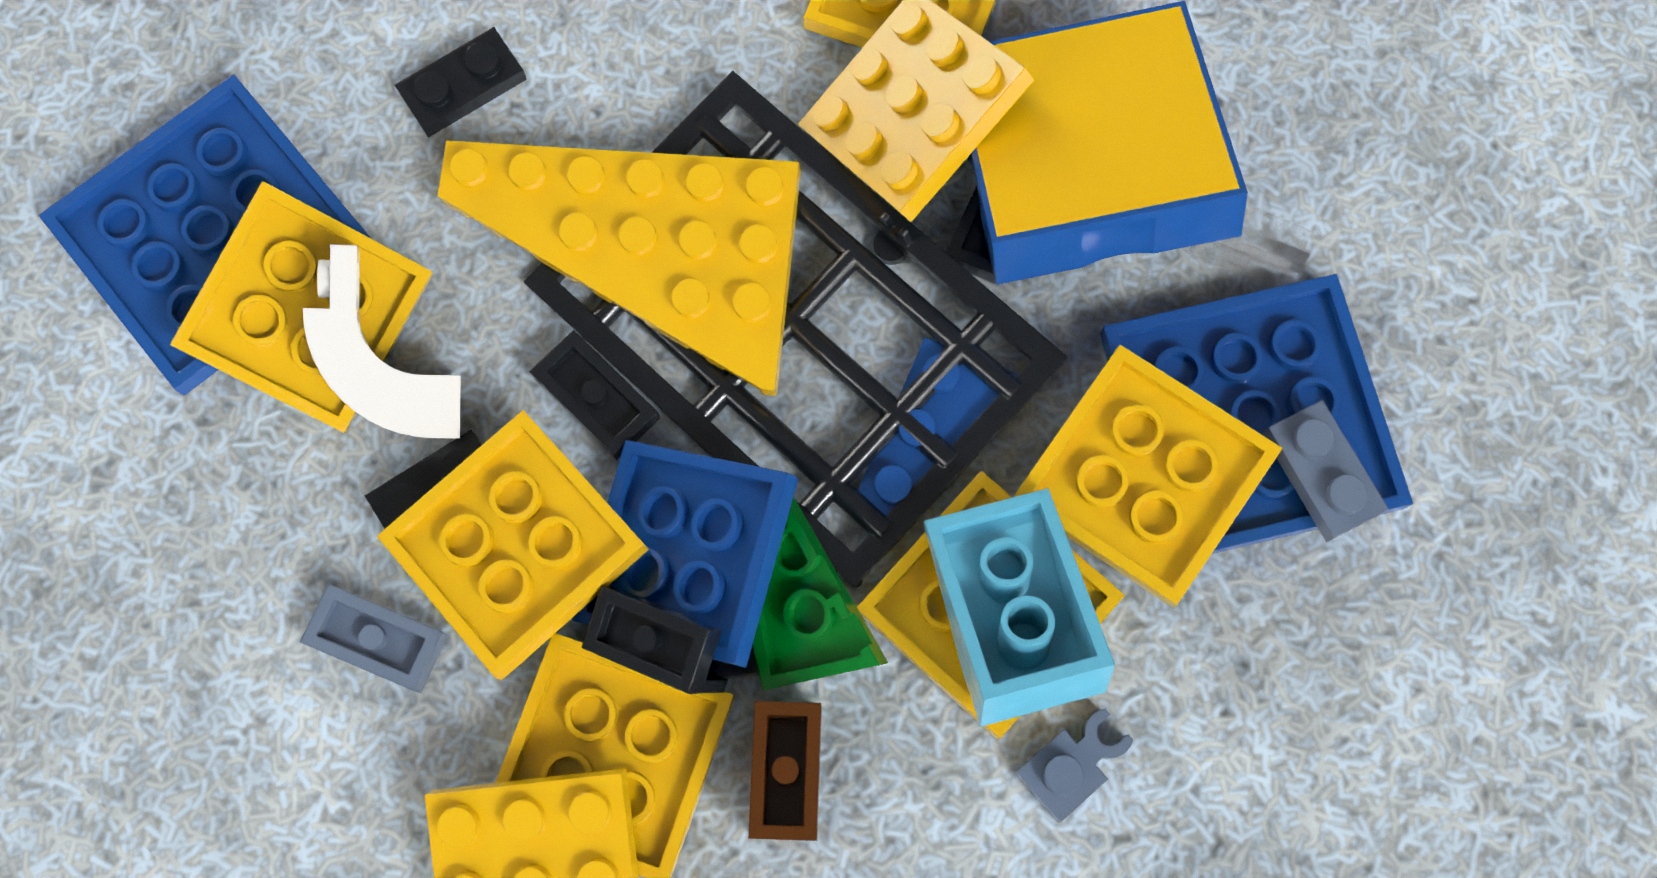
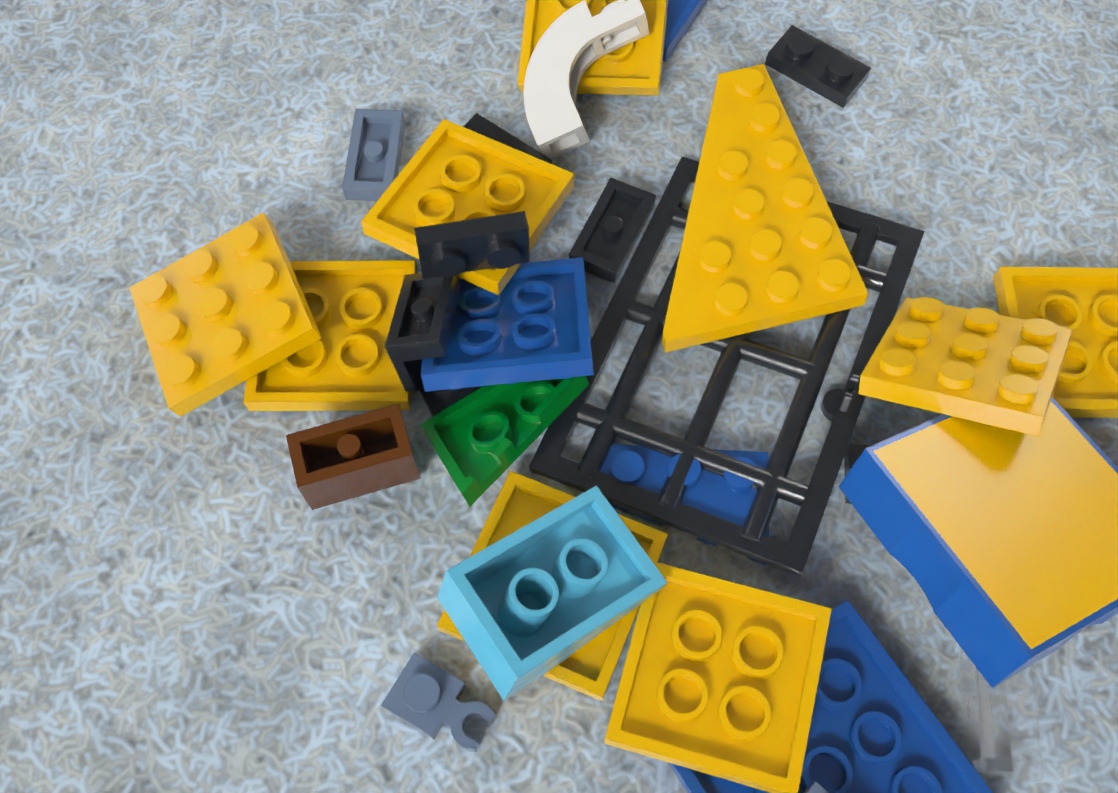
camera: 70 degrees right, 10 degrees down
(595, 580) = (473, 245): none -> black plate

